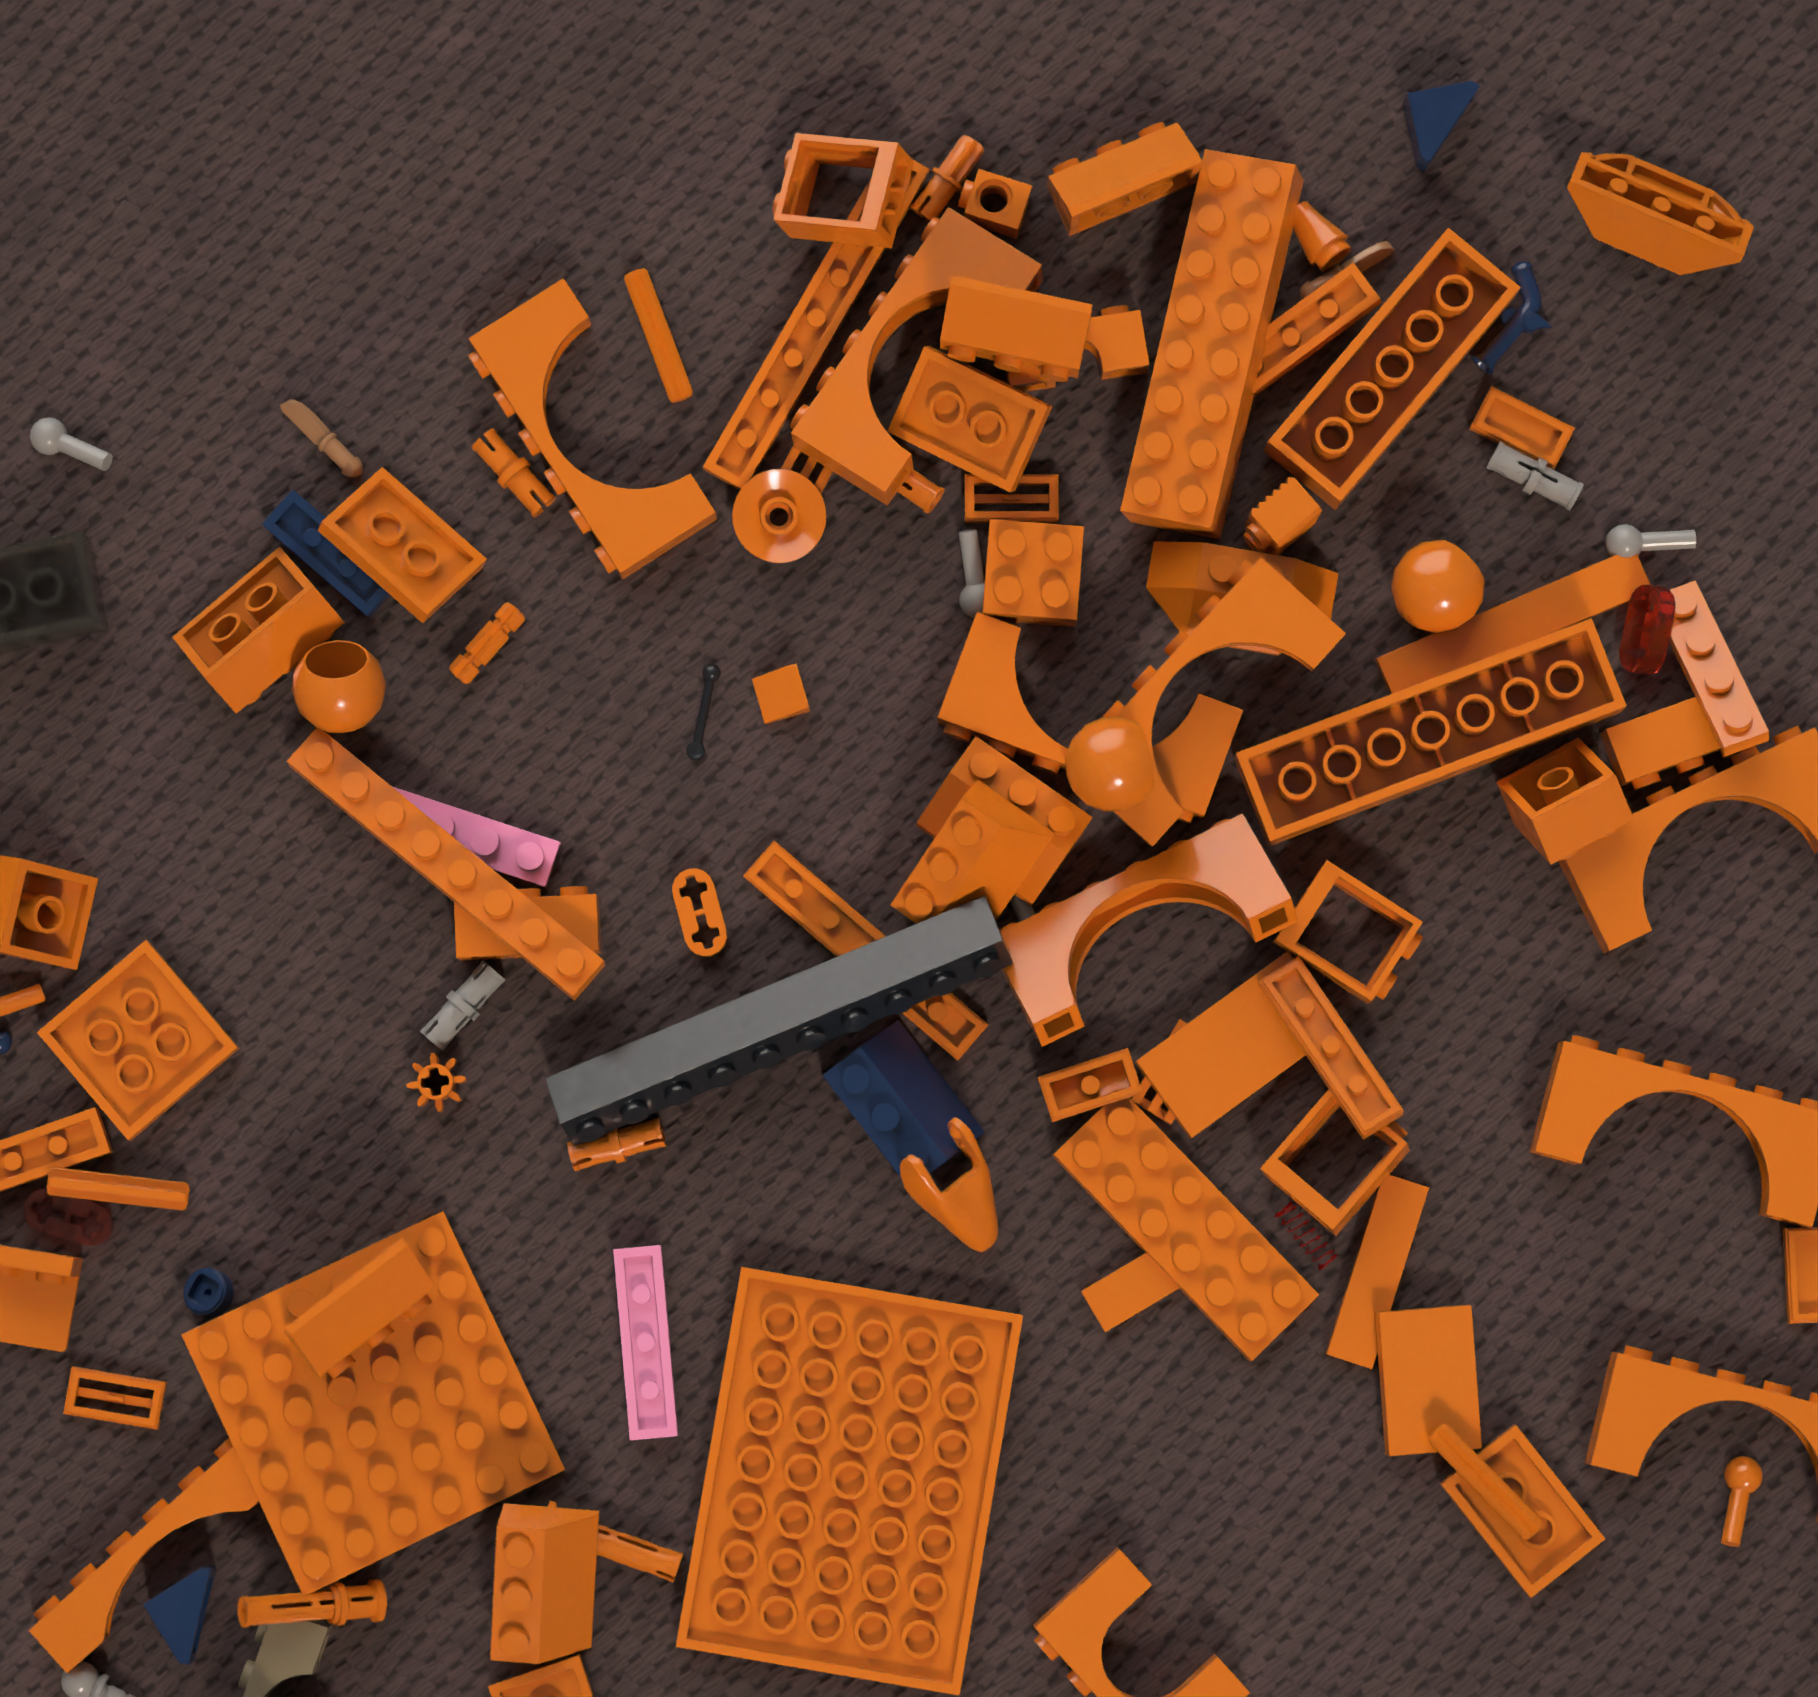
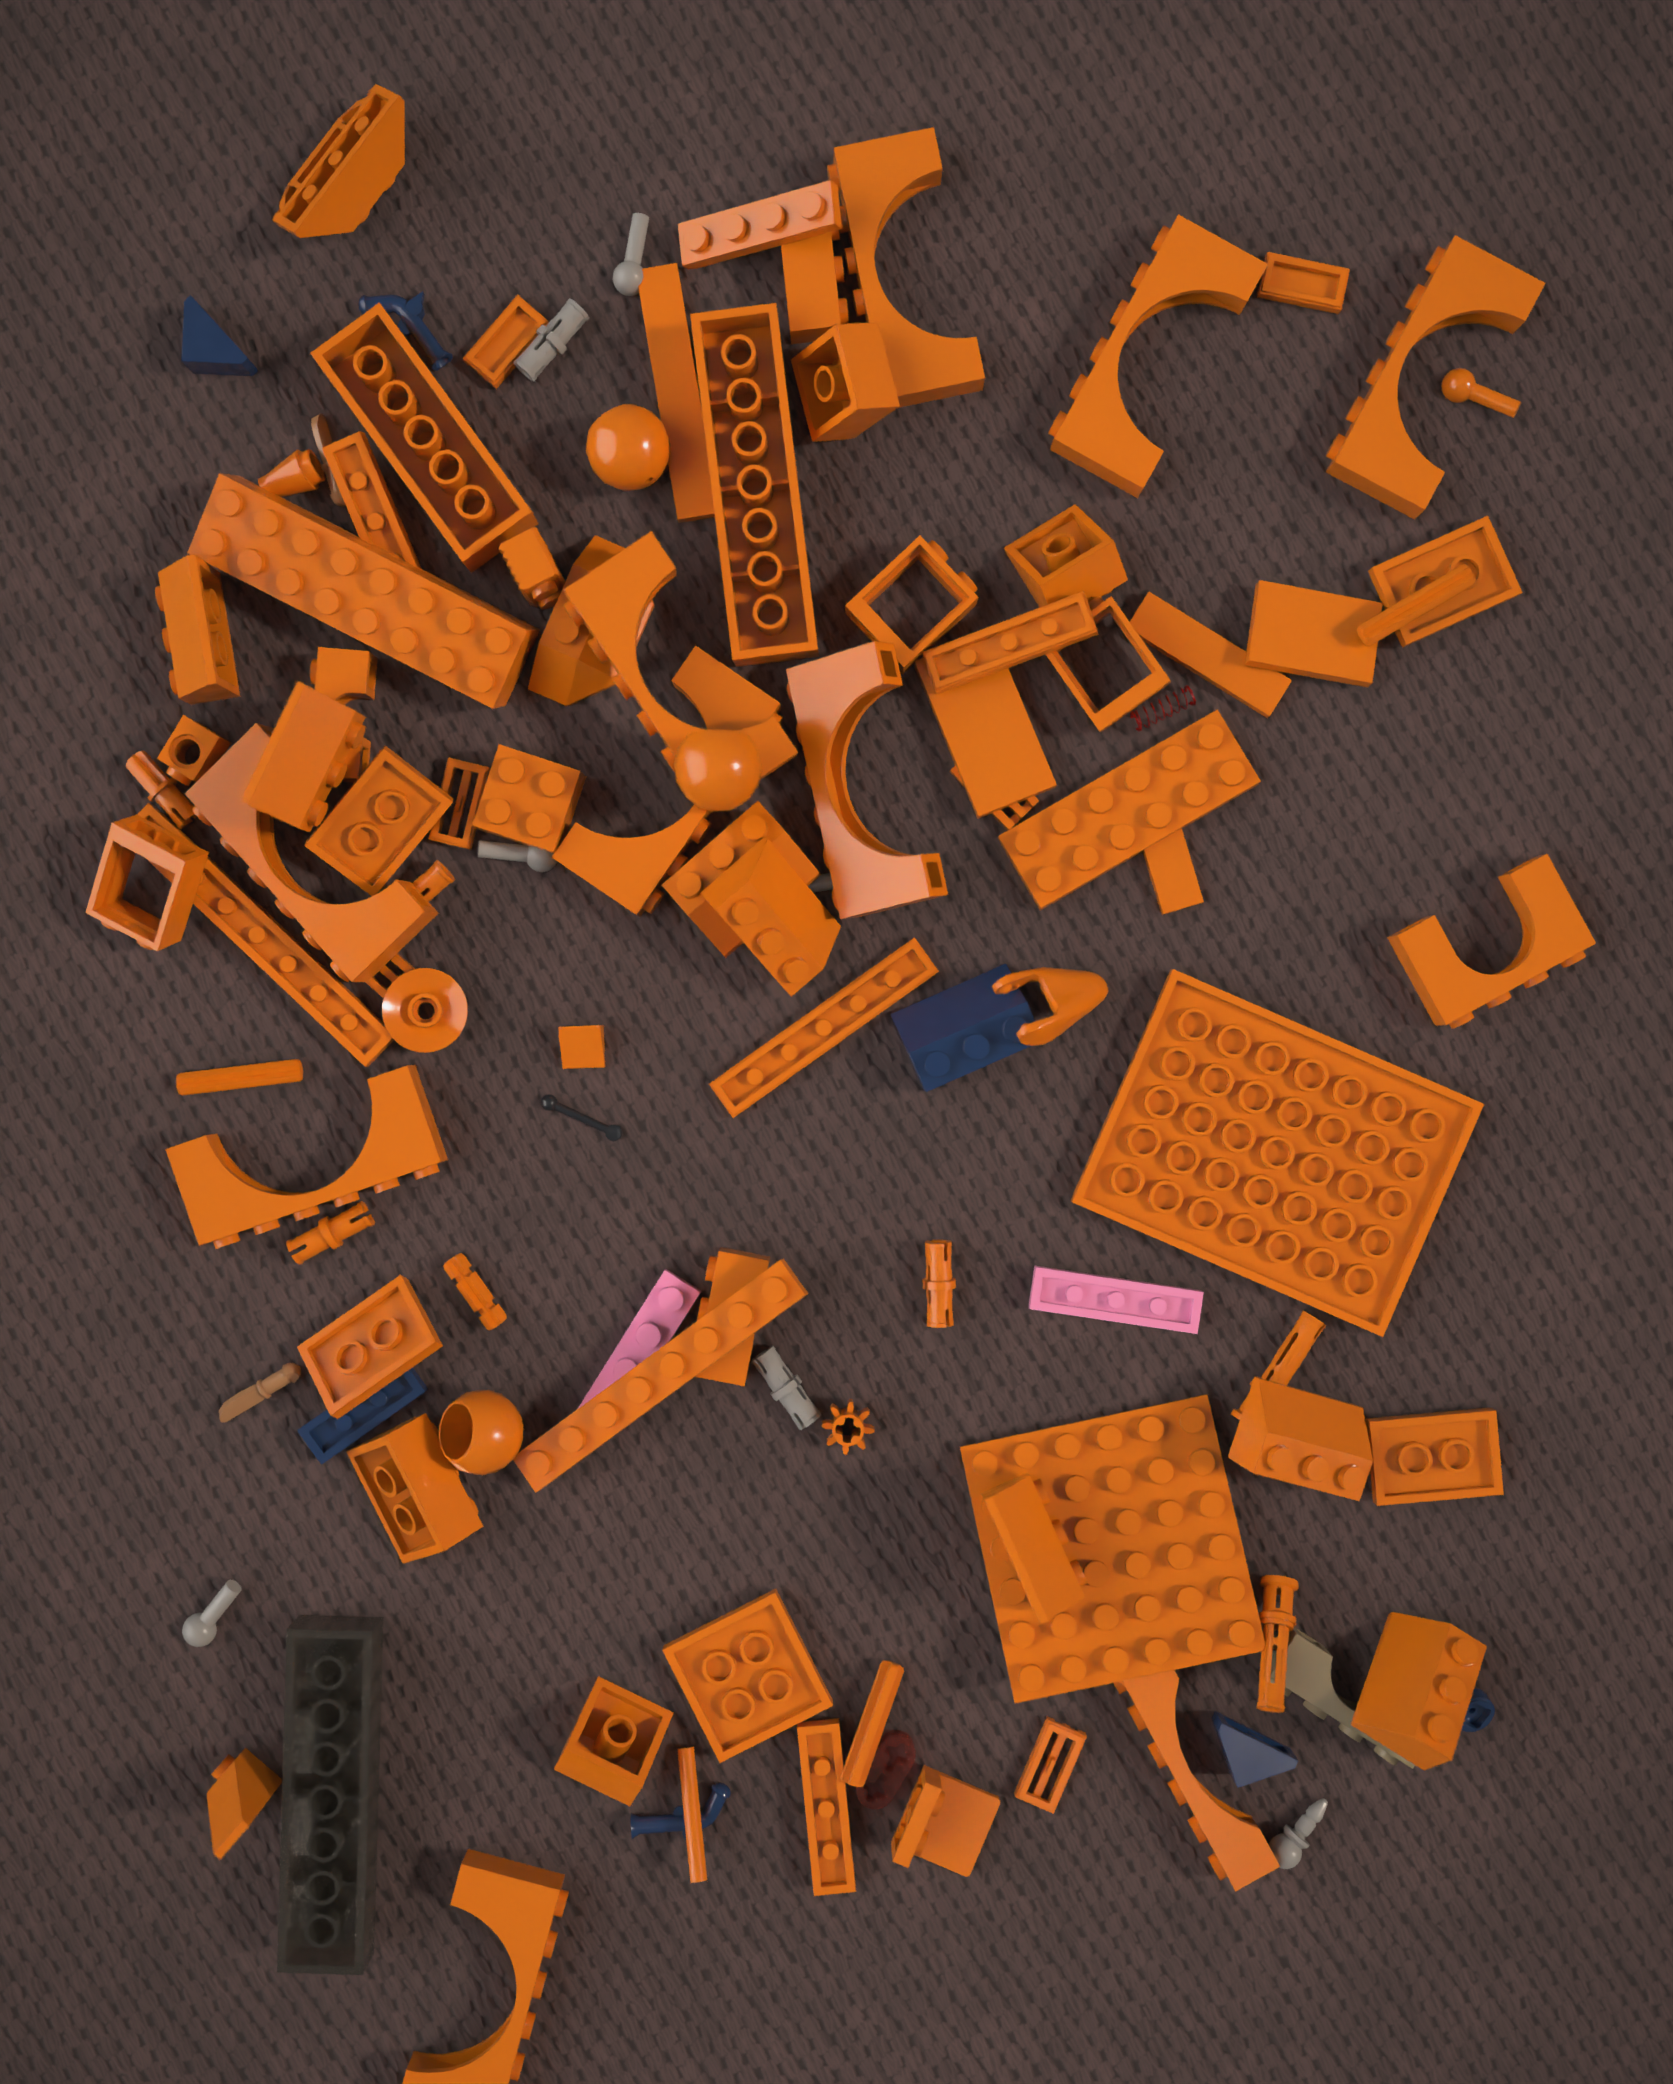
camera: 70 degrees left, 5 degrees up
(208, 1292) = (980, 1665): dark blue tile -> none
(688, 915) = (755, 1174): orange beam -> none
(779, 1021) = (869, 1117): brick -> none
(1089, 1085) = (988, 862): orange slope -> none
(1440, 1089) = (1067, 558): none -> orange slope
(1647, 629) = (710, 275): clear red beam -> none

